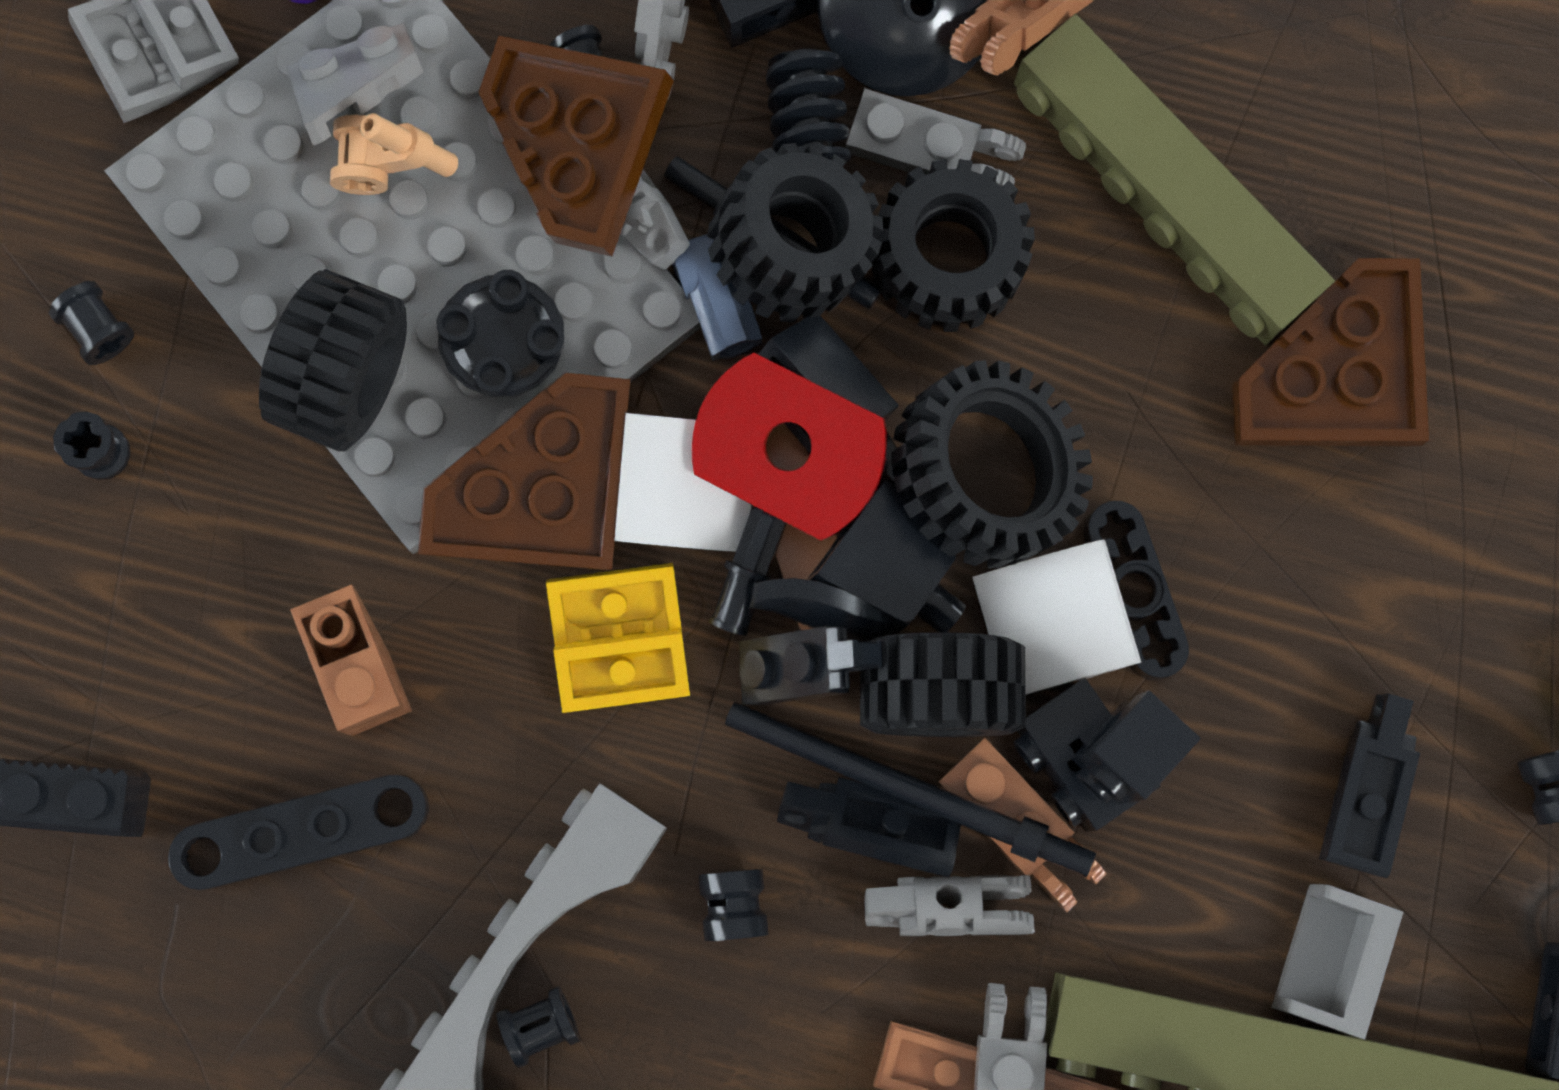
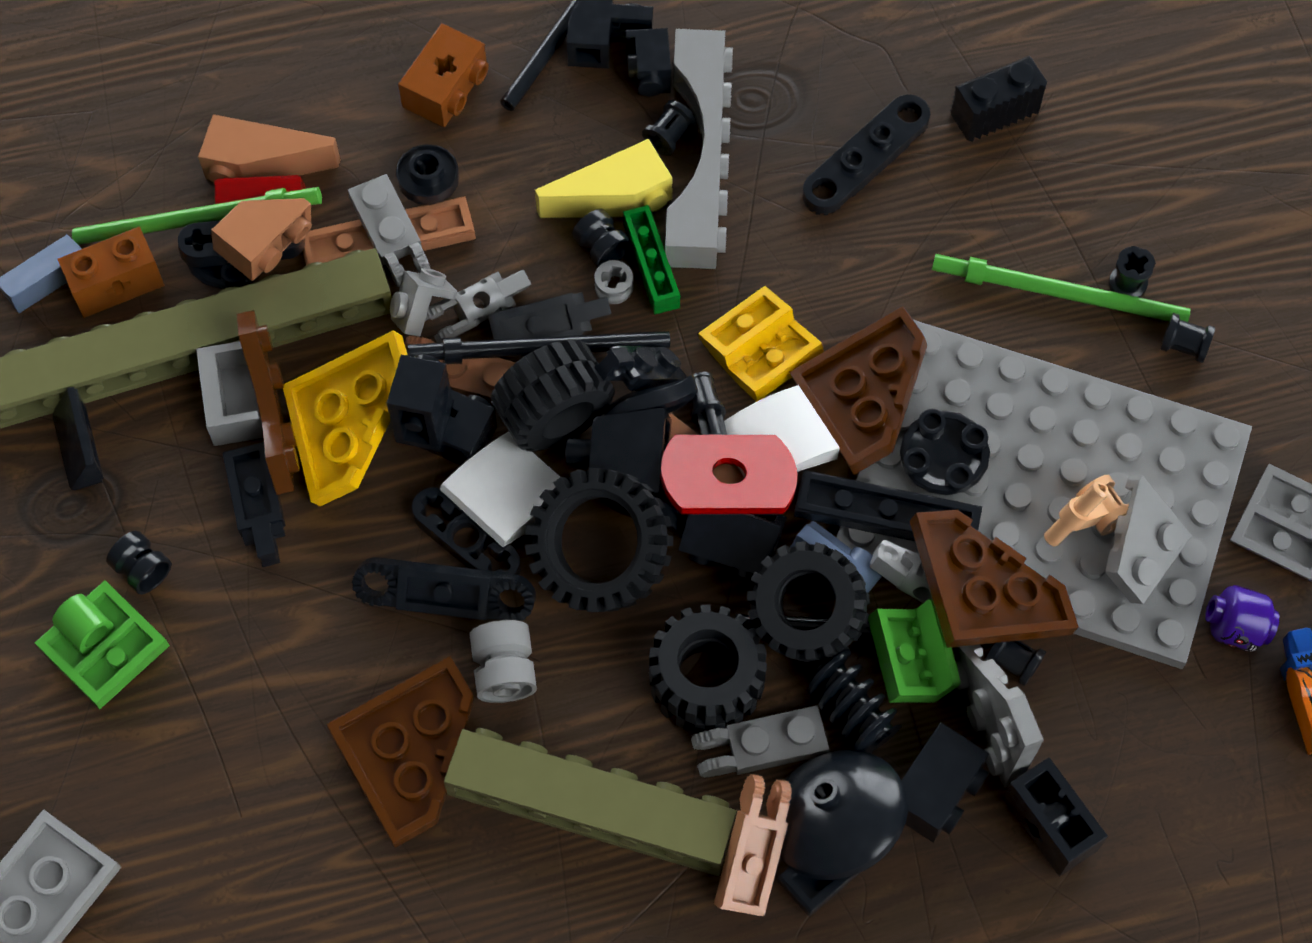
camera: 155 degrees right, 15 degrees down
(277, 570) = (977, 271): none -> bright green bar
(332, 360) = (1024, 361): black tyre -> none
(350, 661) = (897, 237): nougat slope -> none
(623, 315) = (869, 505): none -> black tile
(659, 973) = (614, 184): none -> light yellow slope
(685, 836) = (651, 259): none -> green piece
(707, 120) = (913, 654): none -> bright green bracket
(749, 817) = (603, 276): none -> light grey bush
(1028, 954) = (414, 296): none -> light grey bracket
(1185, 388) = (502, 655): none -> light grey wheel
(1203, 531) = (443, 589): none -> black plate
(1210, 832) = (342, 415): none -> yellow plate
(1293, 937) = (266, 379): none -> reddish brown plate

